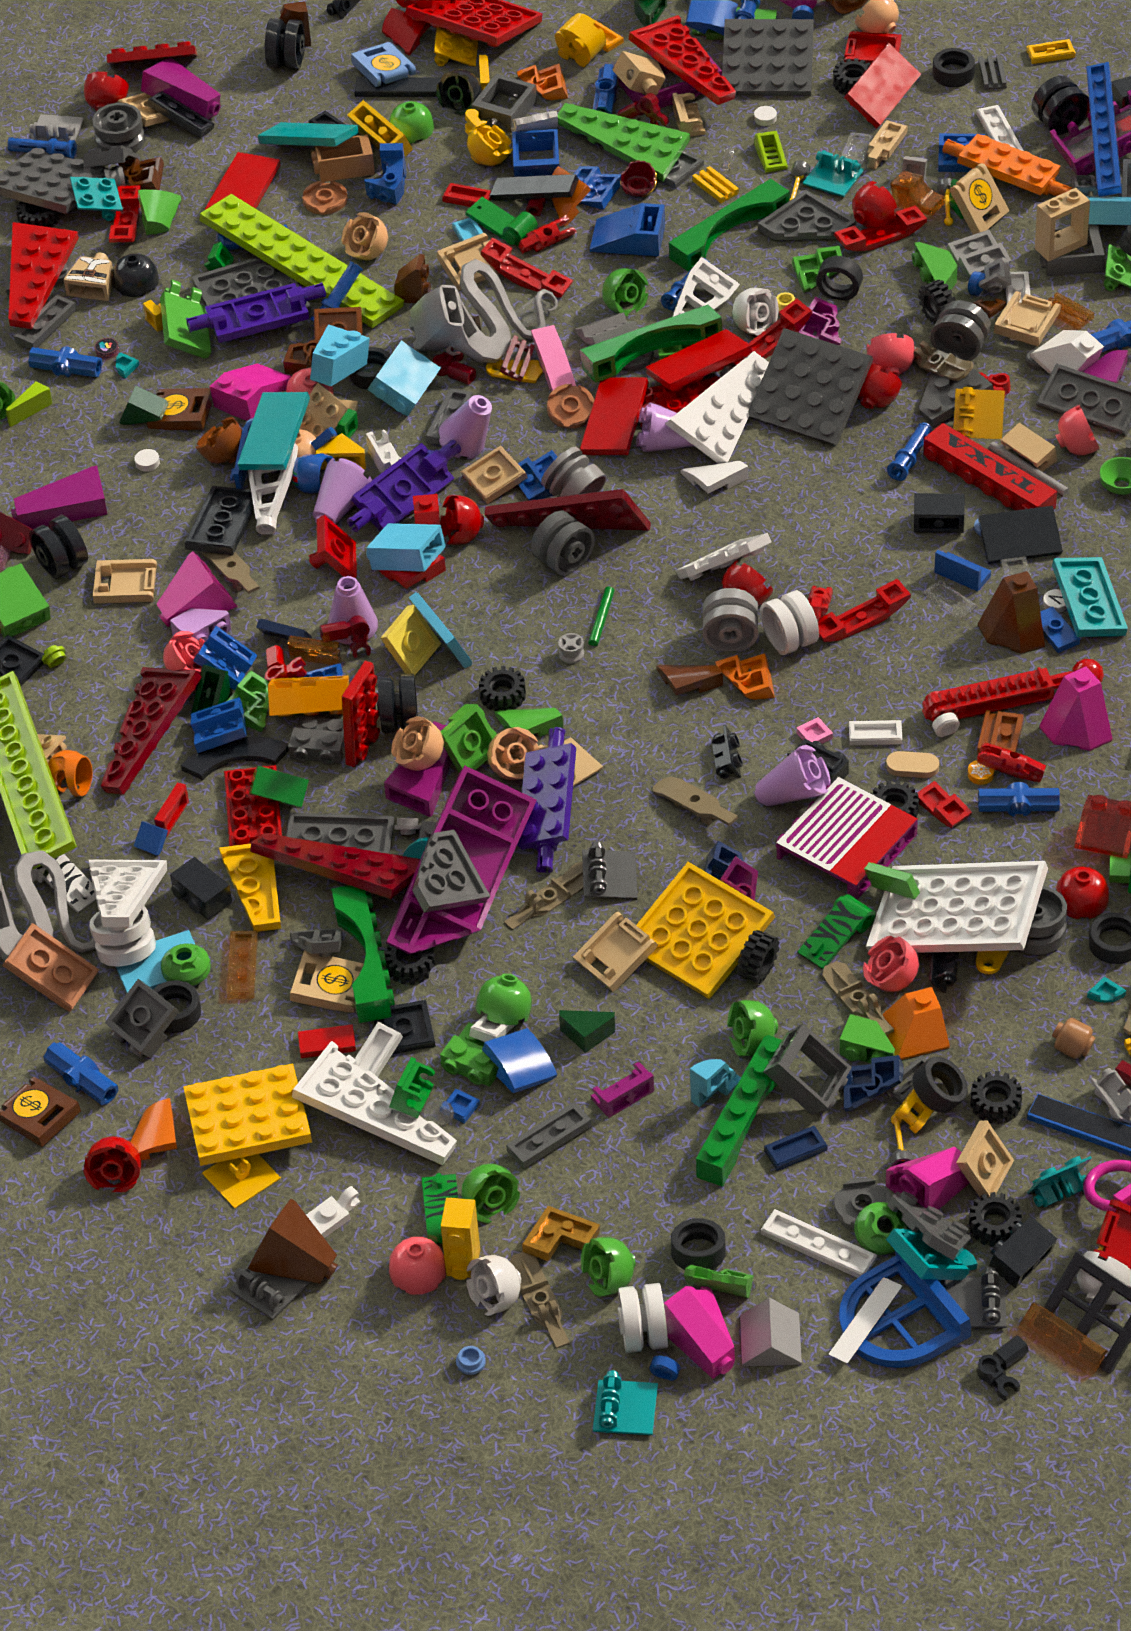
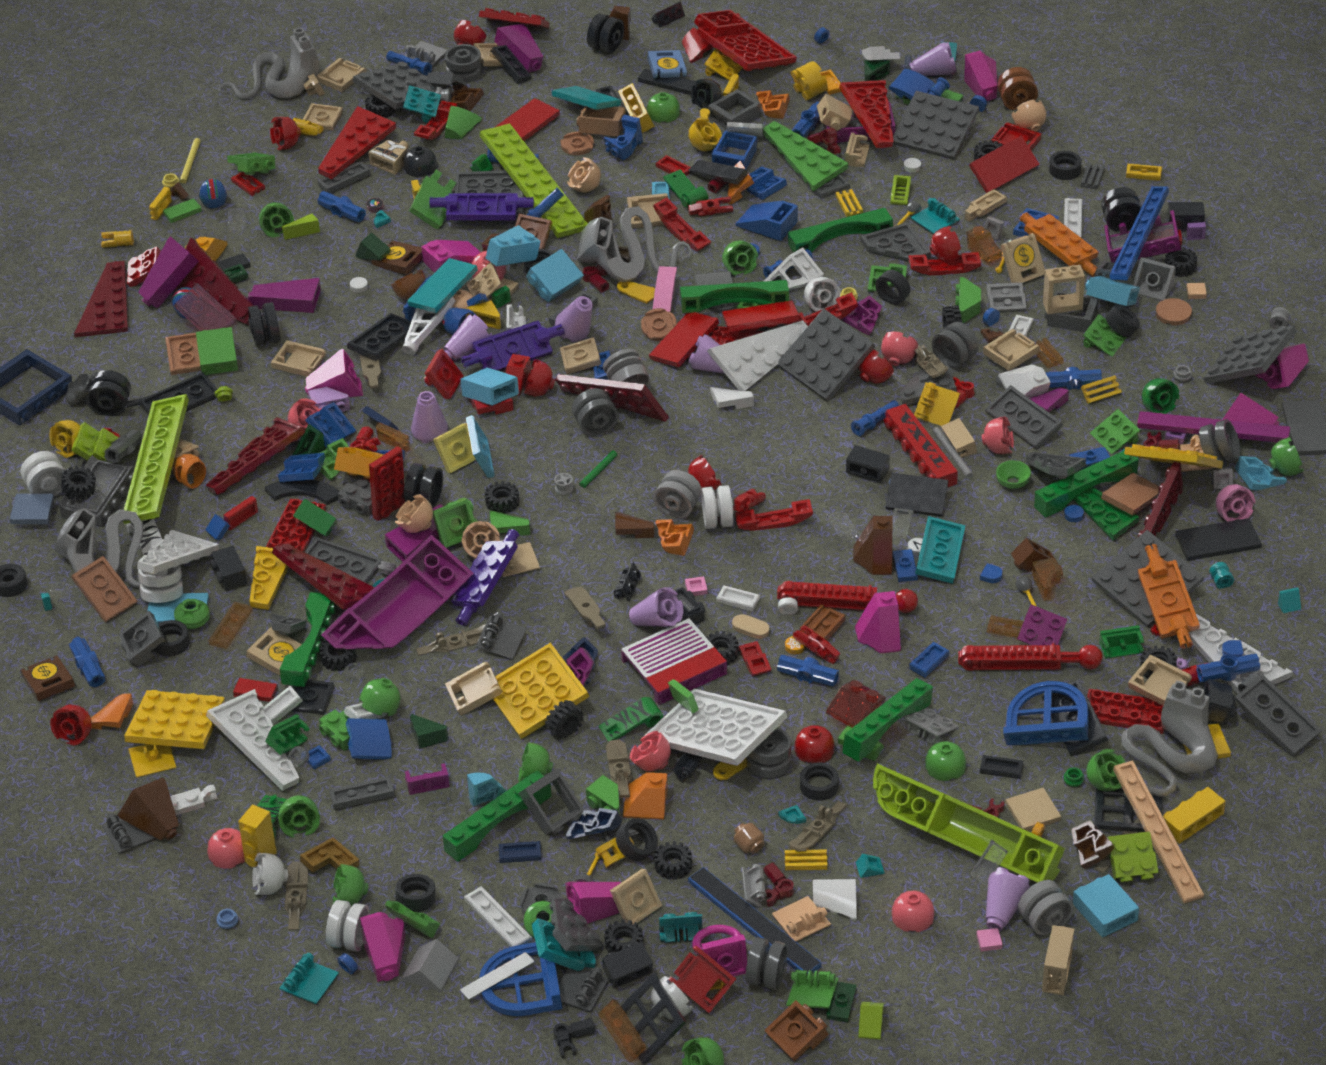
camera: 20 degrees right, 5 degrees down
(355, 627) = (424, 429): dark red bar -> none
(447, 875) = (383, 604): dark grey plate -> none
(521, 347) = (647, 275): tile -> none
(638, 179) = (795, 185): dark red hair -> none
(724, 556) = (713, 450): white plate -> none
(961, 570) = (861, 505): blue panel -> none
(996, 275) = (1006, 316): light grey bracket -> none

